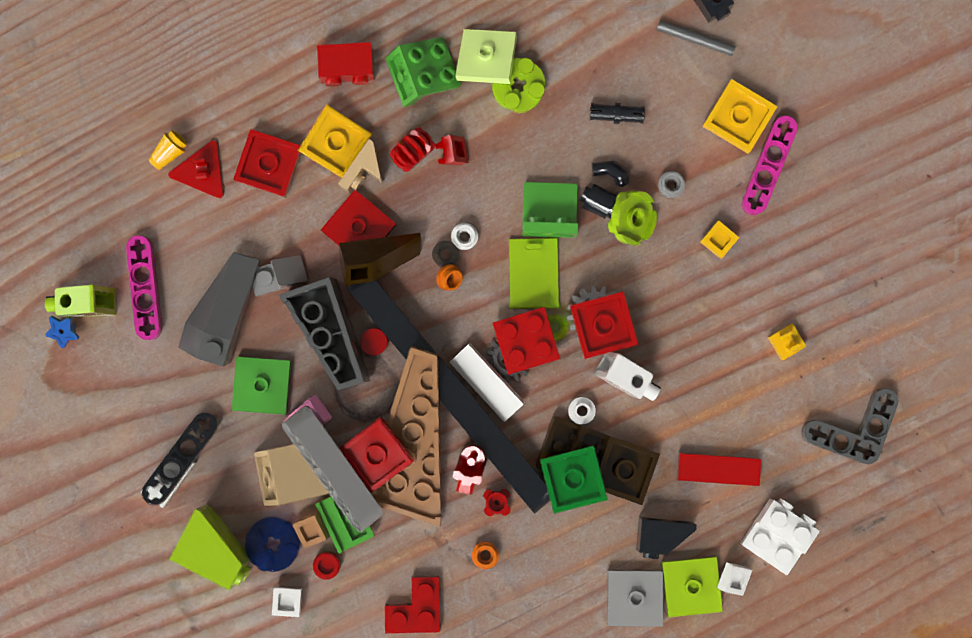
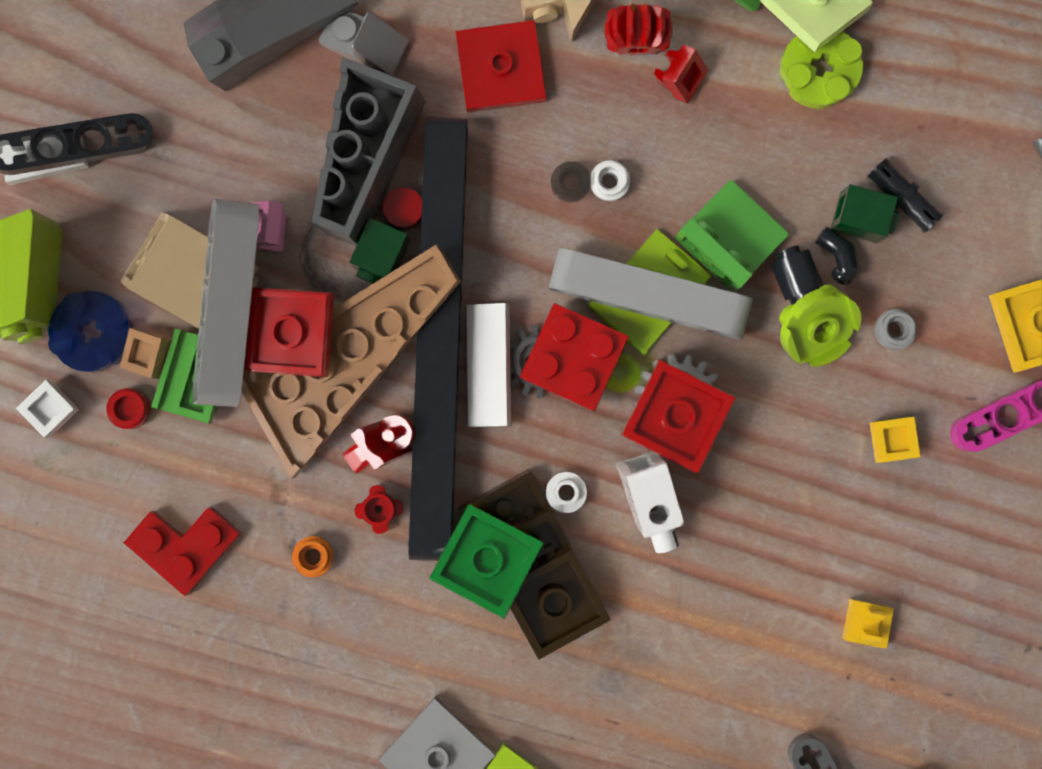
camera: 40 degrees right, 0 degrees up
(261, 385) = (236, 145): bright green plate -> none
(373, 258) = (491, 114): dark brown slope -> none
(382, 375) = (378, 251): none -> dark green brick
(449, 277) = (552, 219): orange plate -> none
(535, 275) = (650, 293): none -> light grey beam
(606, 141) = (865, 214): none -> dark green brick
(661, 535) = (529, 714): black slope -> none
(719, 469) = (661, 698): red tile -> none

